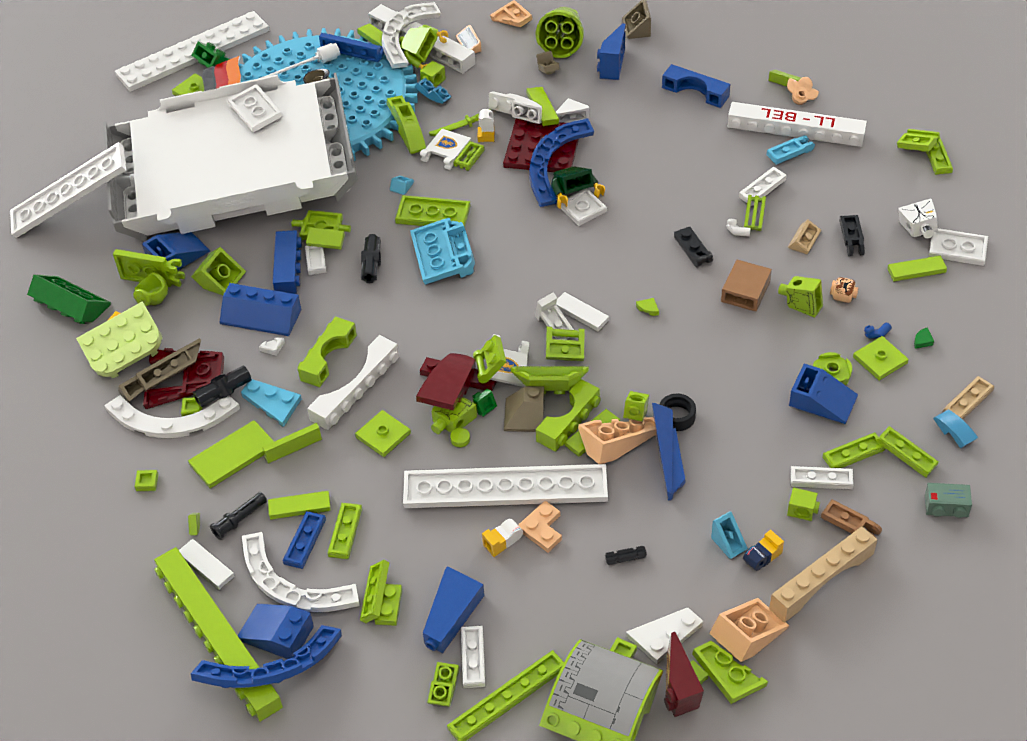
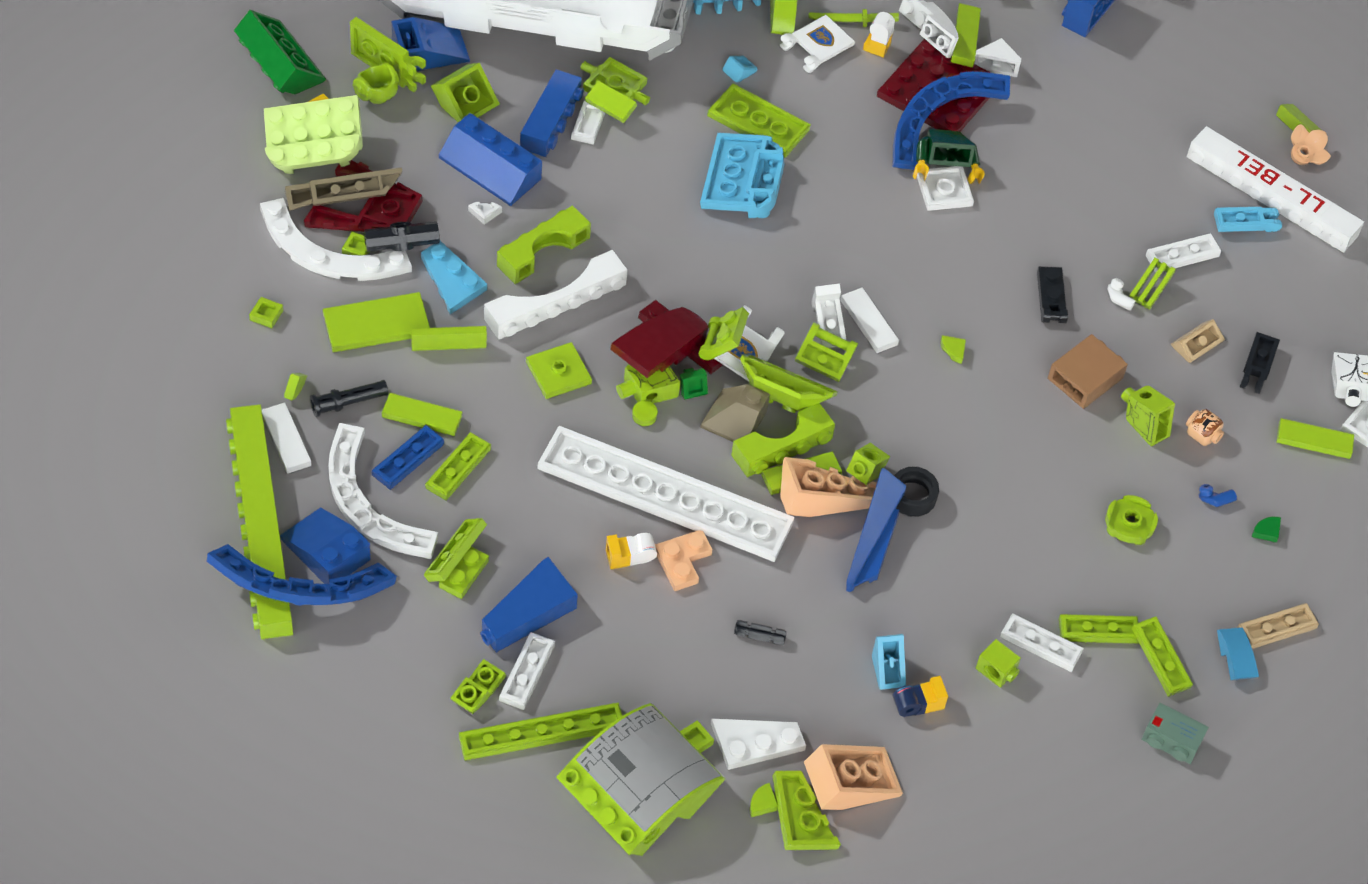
camera: 15 degrees right, 5 degrees up
(370, 258) = (653, 149): black piece -> none
(472, 156) = (844, 65): lime tile -> none
(679, 79) = (1158, 67): blue arch -> none
(682, 684) = (735, 807): dark red slope -> none
(797, 592) = (928, 760): tan arch -> none
(822, 394) = (1099, 544): blue slope -> none
(848, 518) = (1044, 707): medium nougat hinge -> none
(880, 358) = (1200, 530): lime plate -> none

